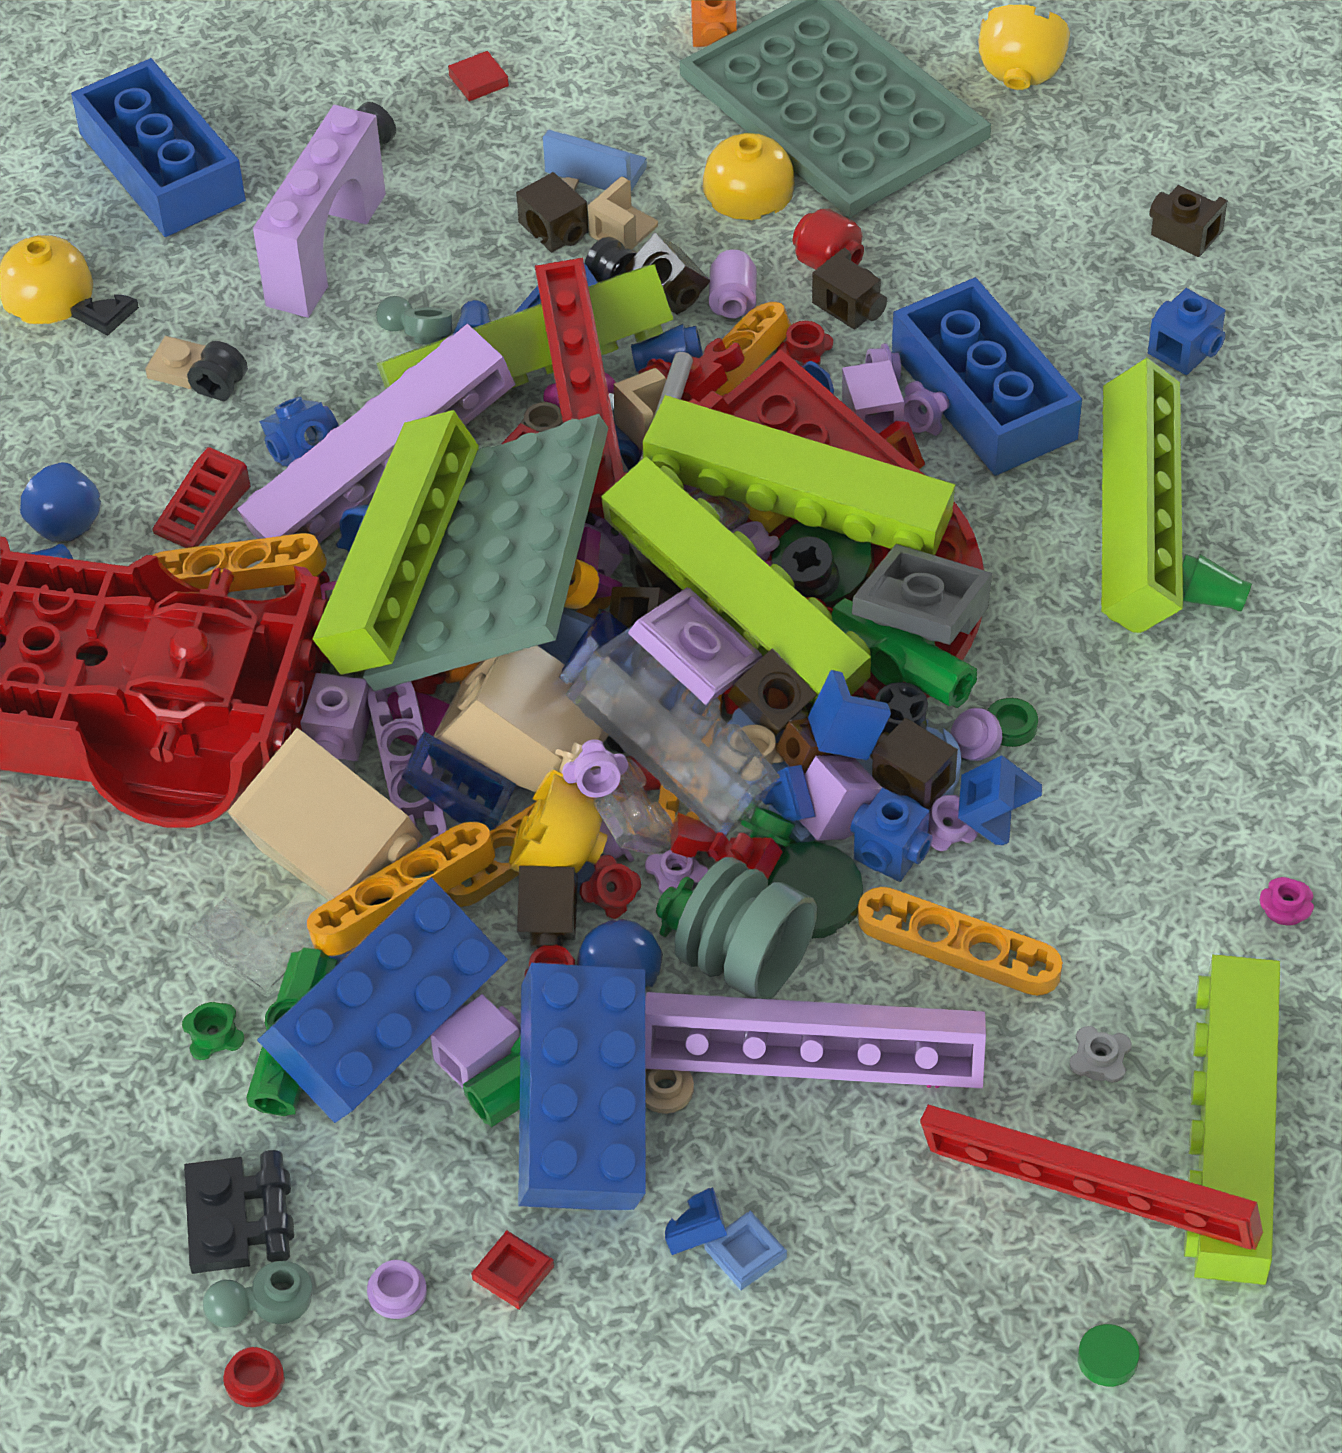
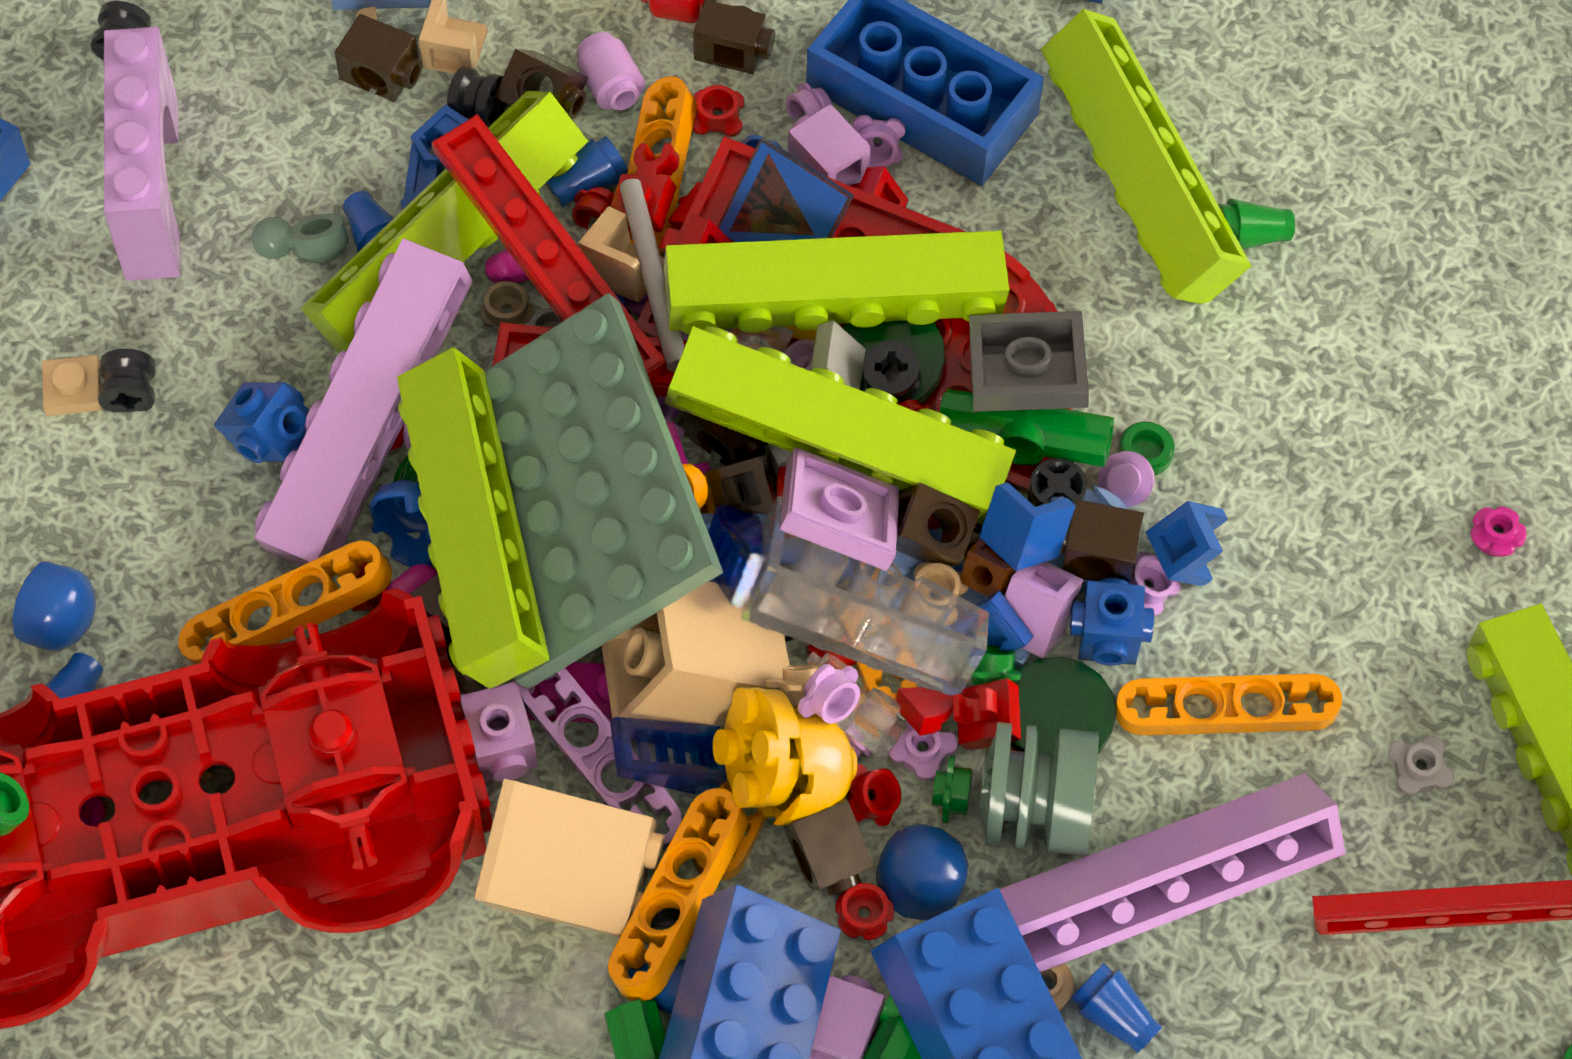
camera: 30 degrees left, 10 degrees up
(213, 472) = (197, 502): red slope -> none
(521, 797) = (758, 747): none -> yellow plate
(712, 1124) = (1116, 1008): none -> blue cone
(770, 534) = (838, 353): none -> light grey tile
(795, 401) = (783, 200): none -> piece

